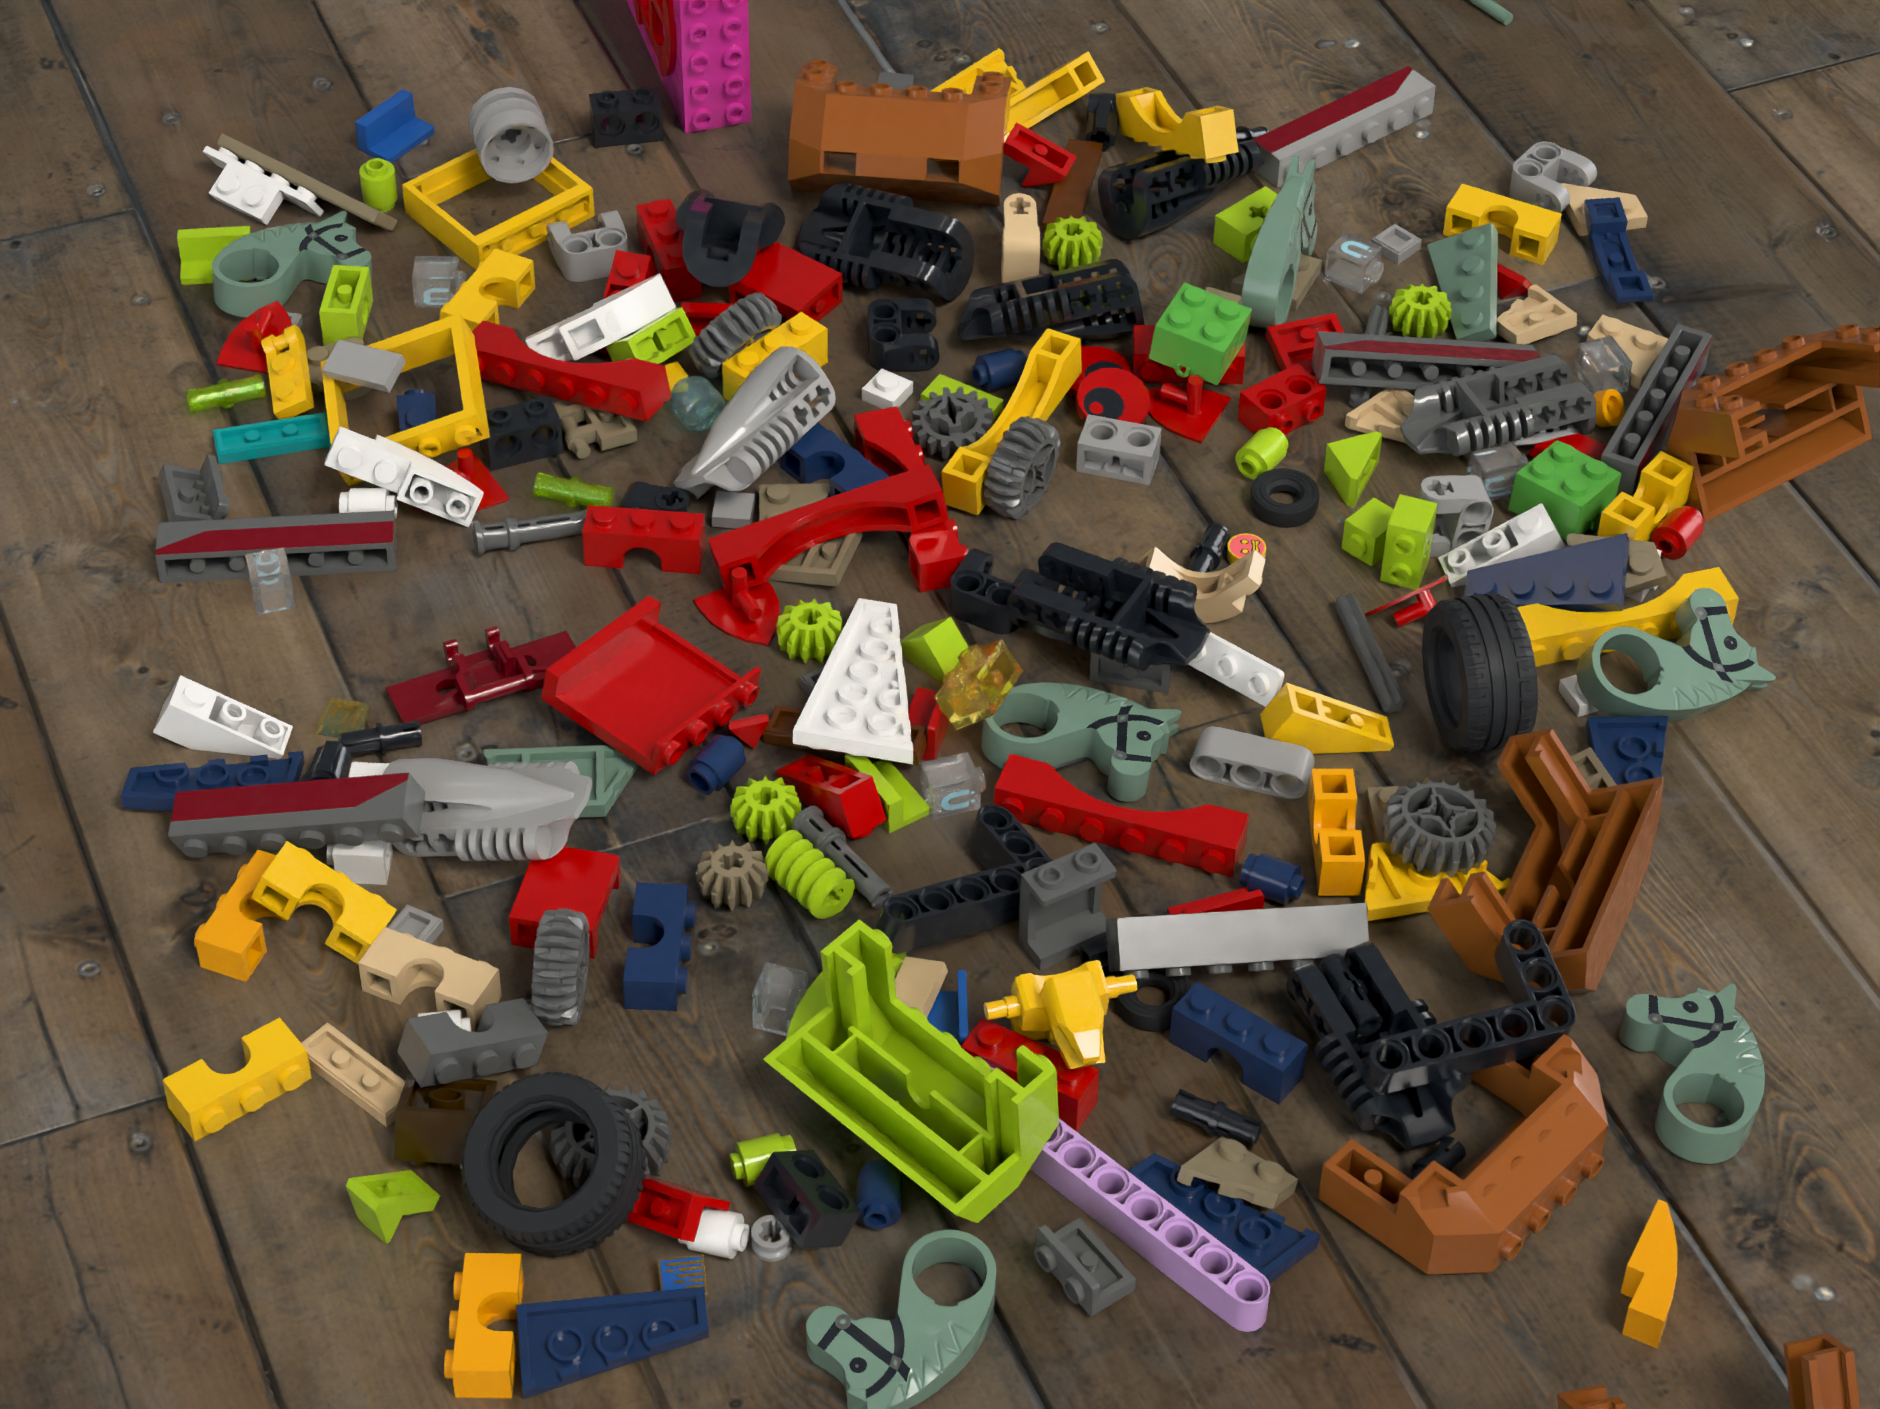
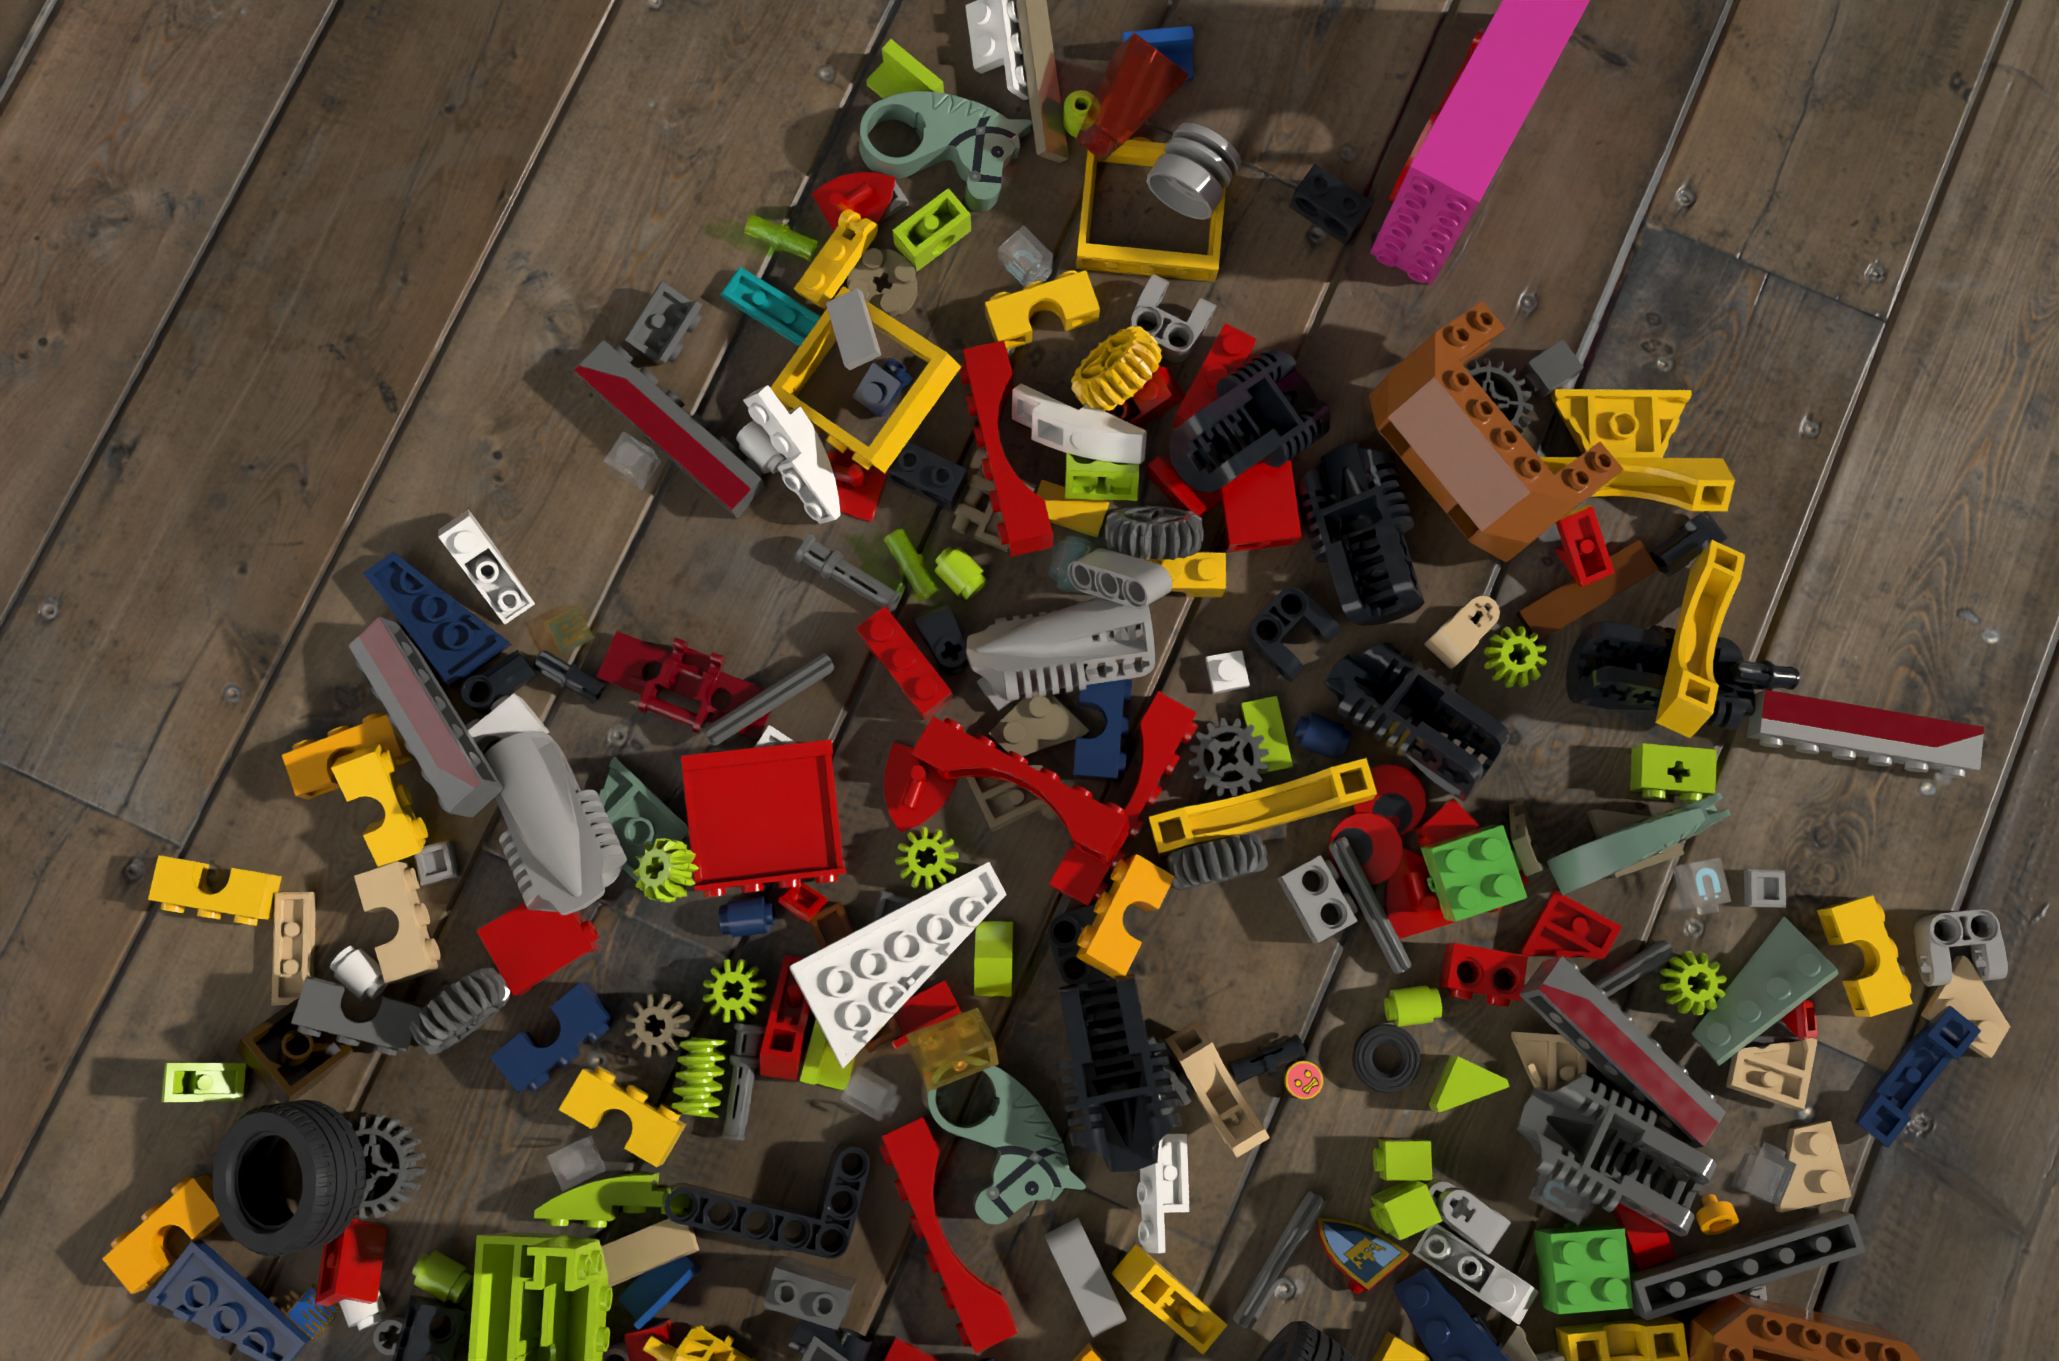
camera: 45 degrees right, 35 degrees up
(403, 139) = (1129, 93): none -> clear red slope
(567, 623) = (769, 699): none -> dark grey axle
(590, 270) = (1116, 369): none -> yellow gear
(617, 467) = (960, 572): none -> lime brick
(619, 759) = (665, 870): none -> lime gear
(731, 361) = (1120, 578): none -> light grey beam
(744, 947) = (653, 1129): none -> yellow arch
(988, 523) = (1106, 942): none -> light orange arch
(1172, 428) = (1370, 905): none -> dark grey axle

